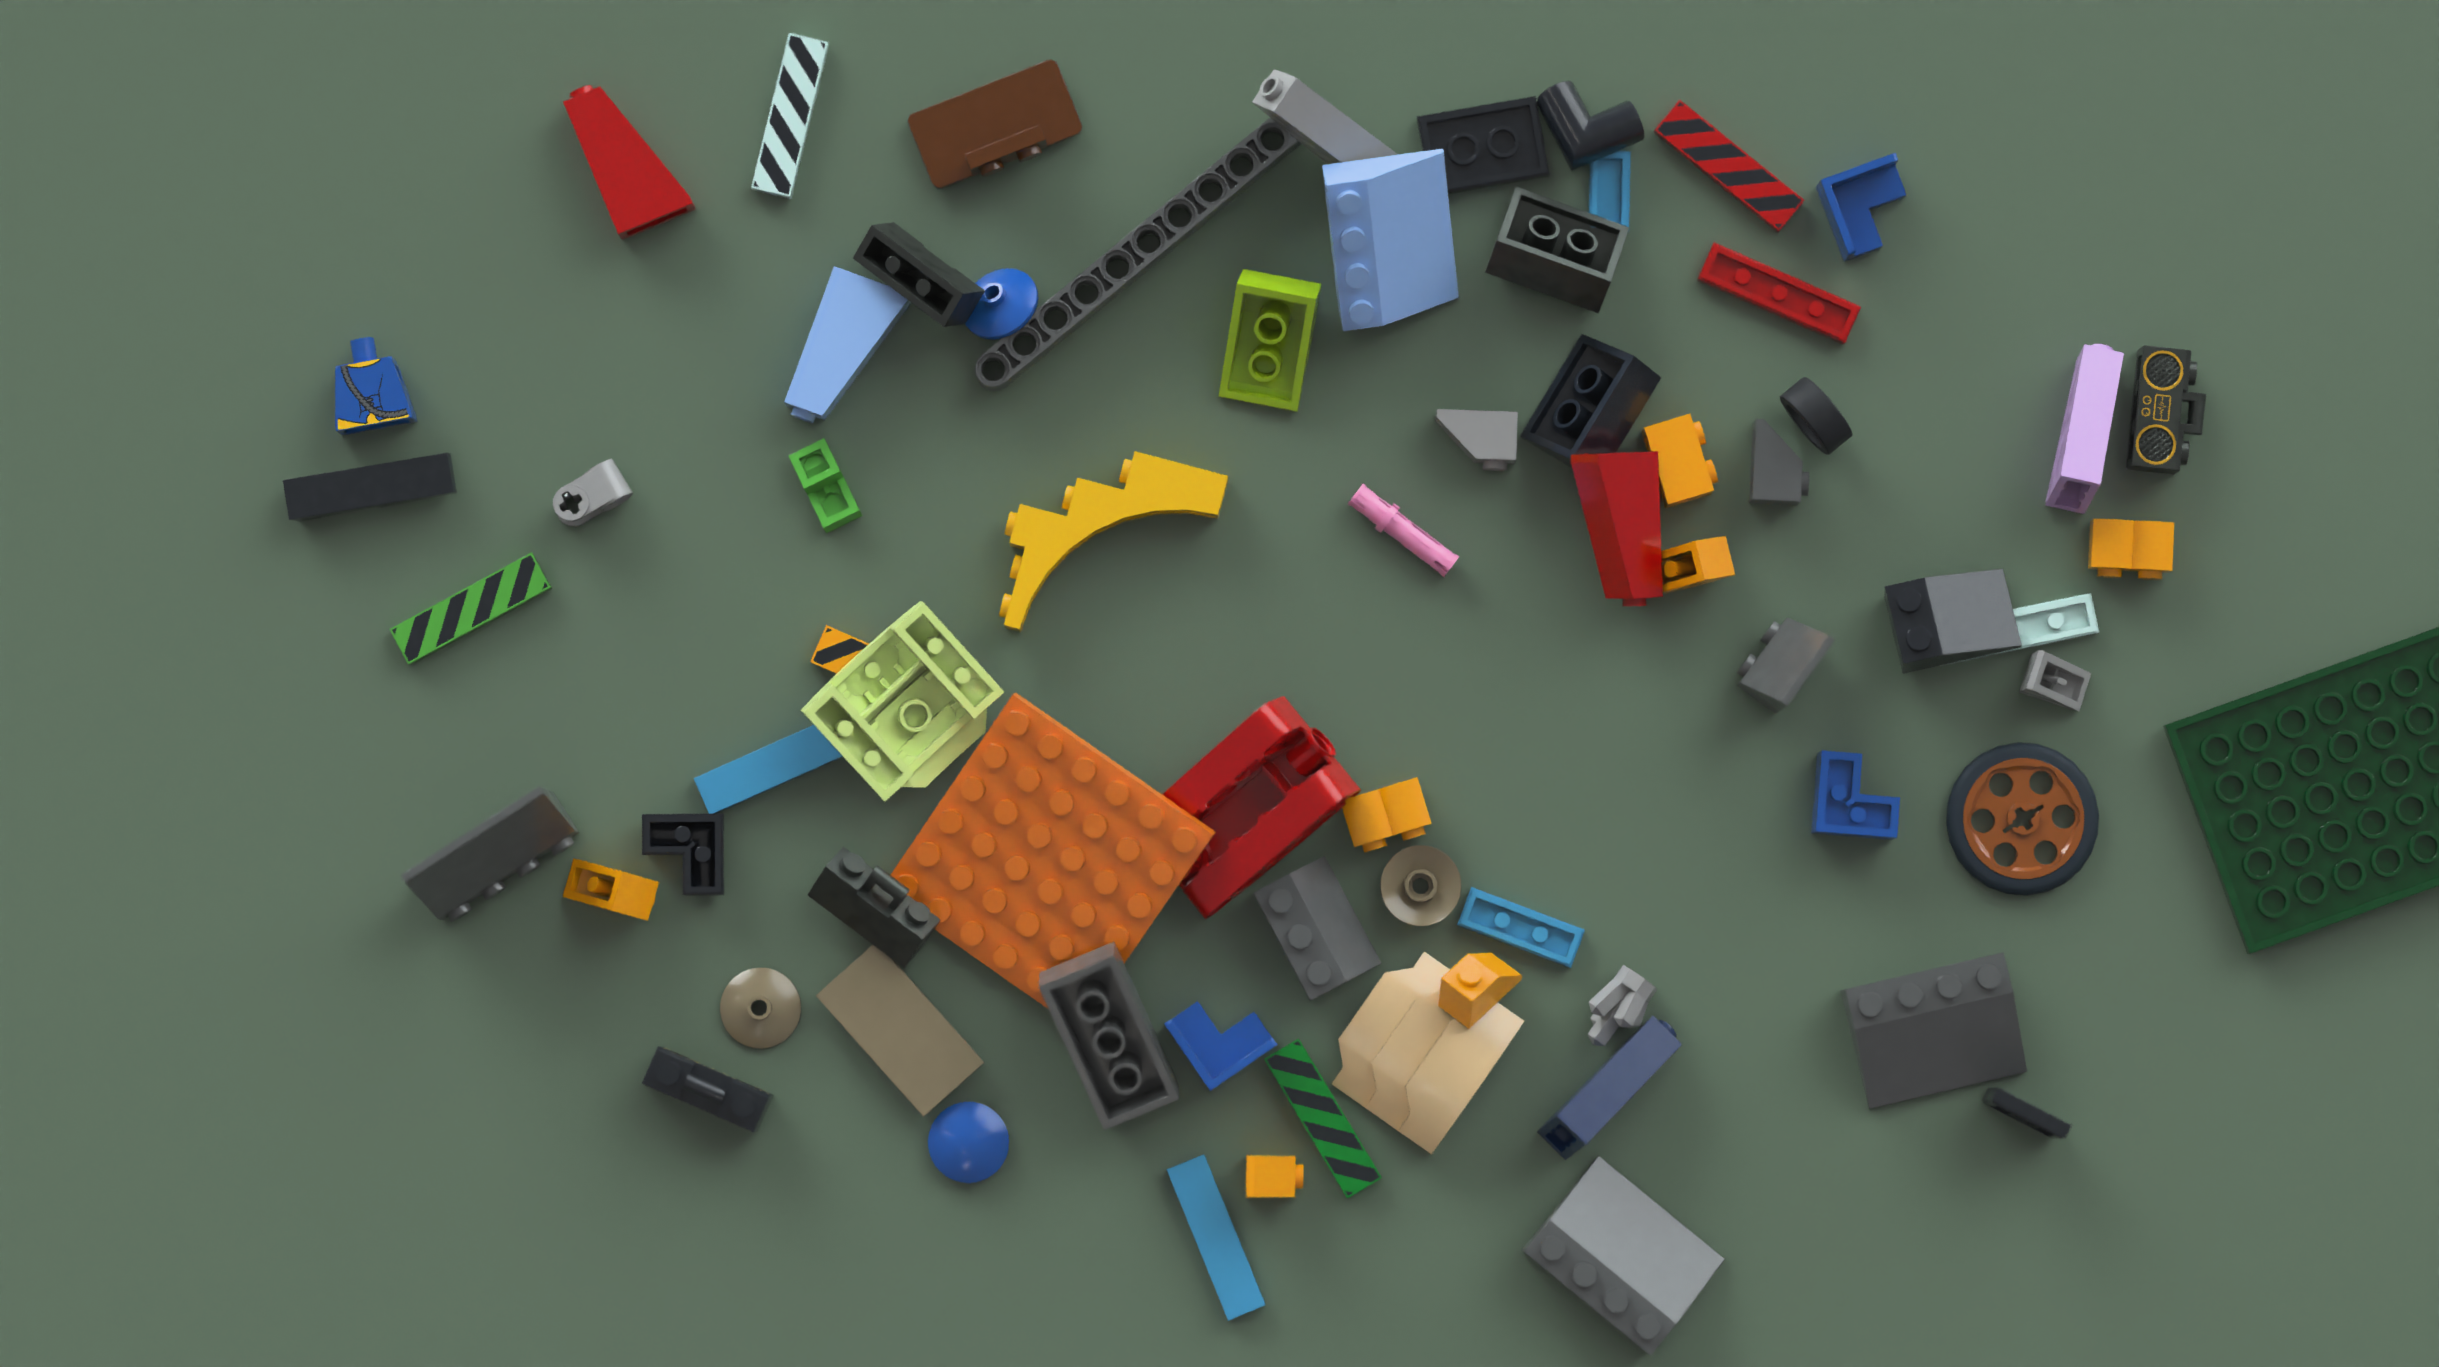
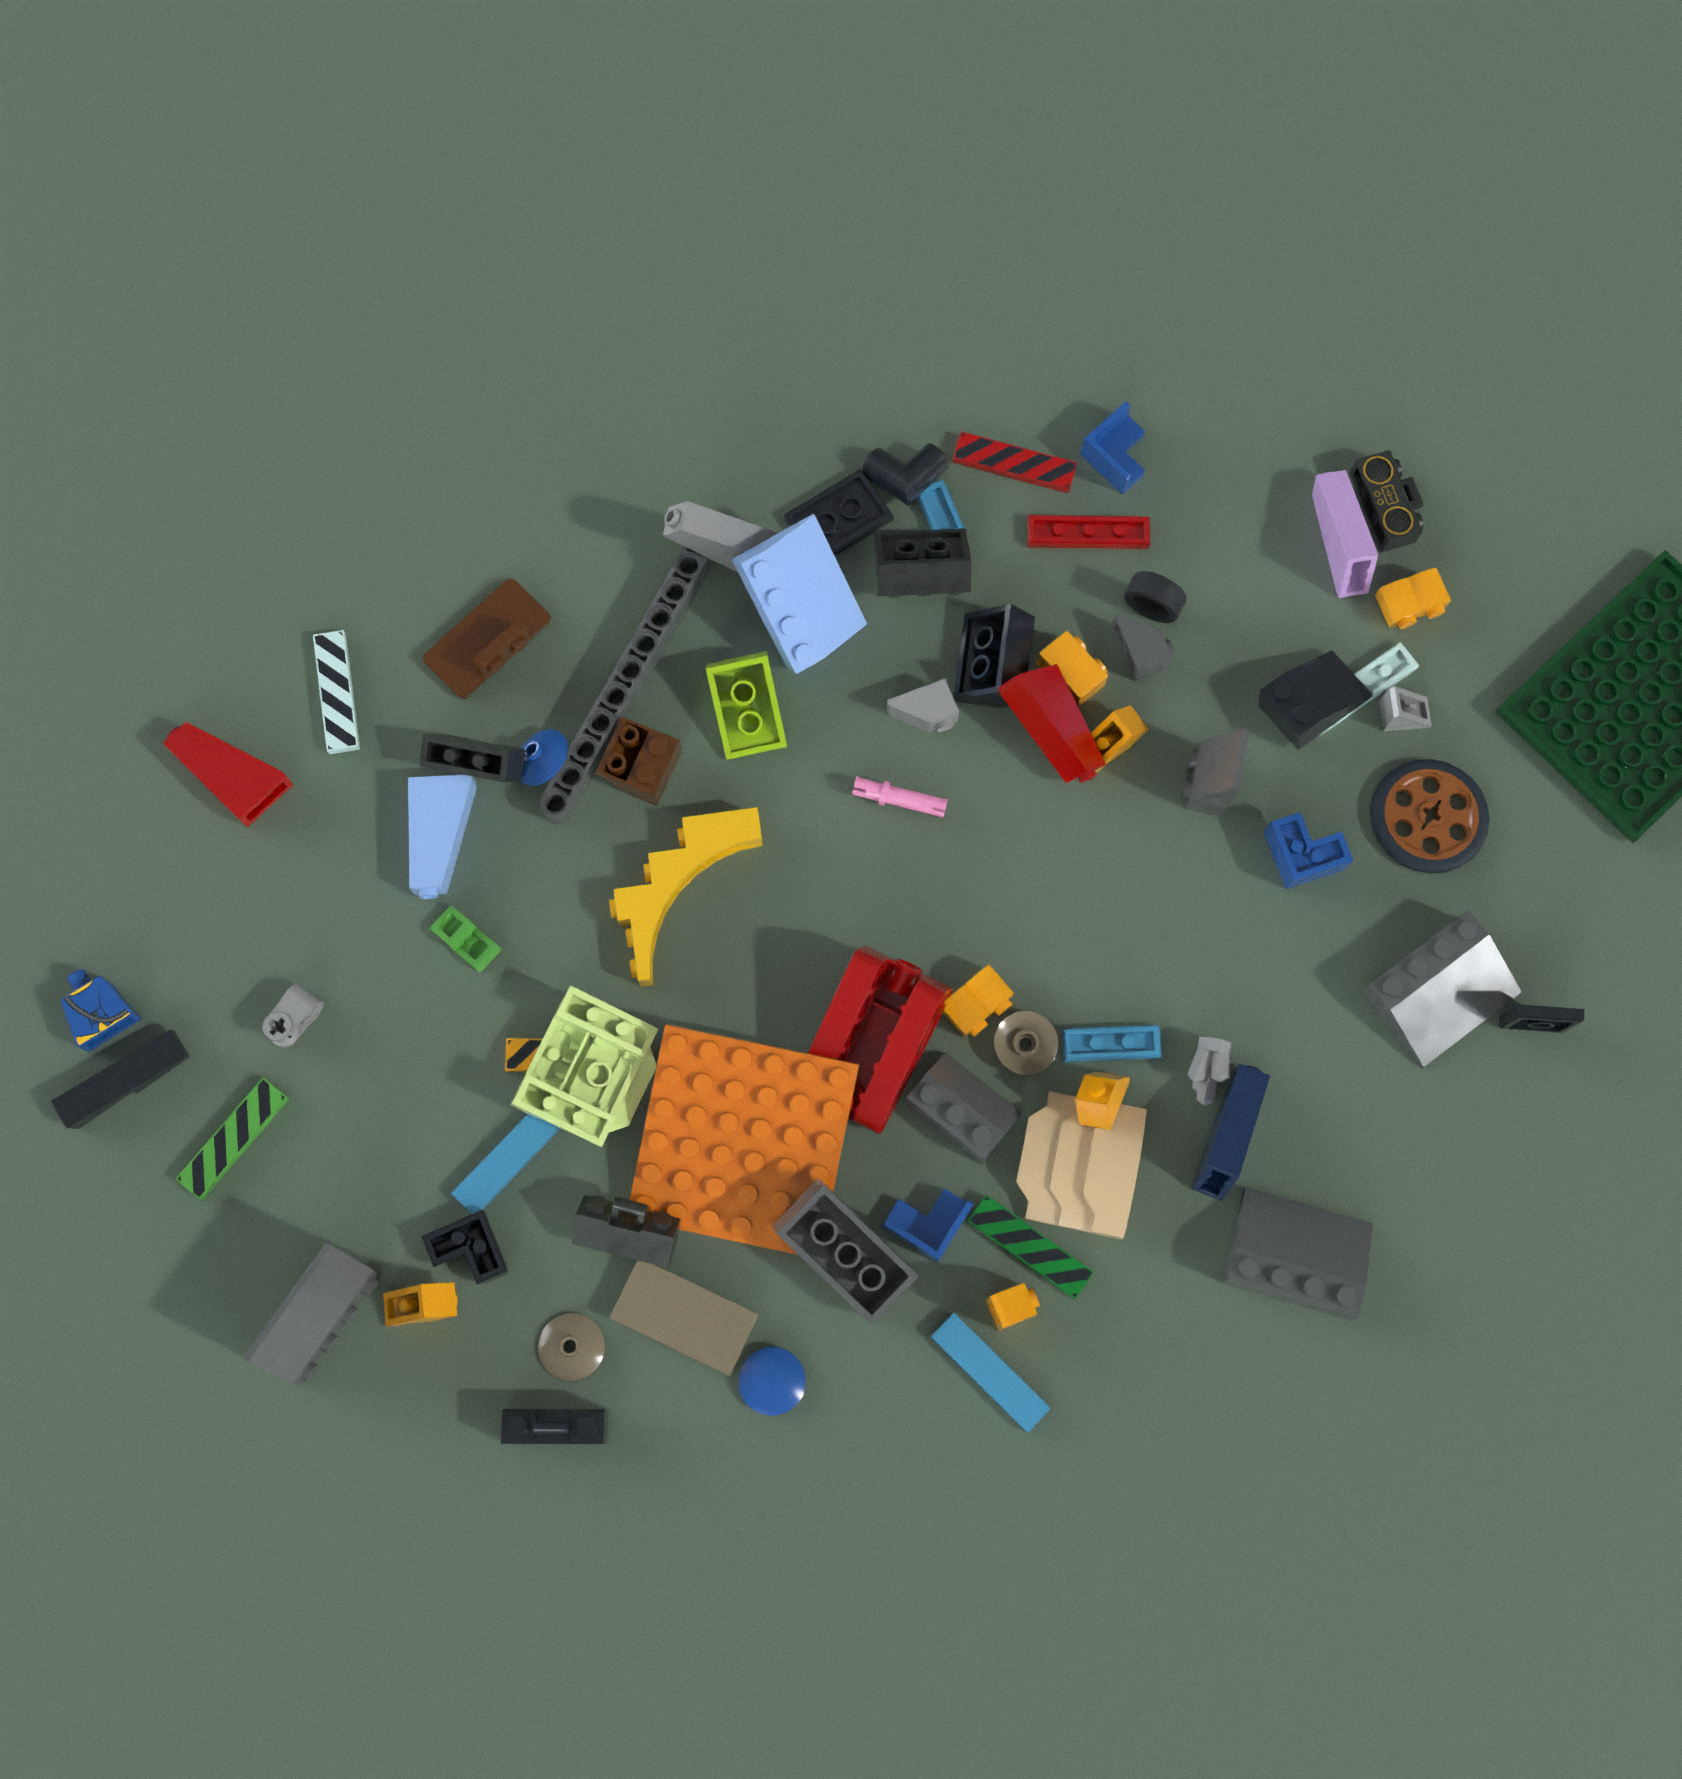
camera: 25 degrees left, 10 degrees down
(1114, 357) = (640, 760): none -> reddish brown slope

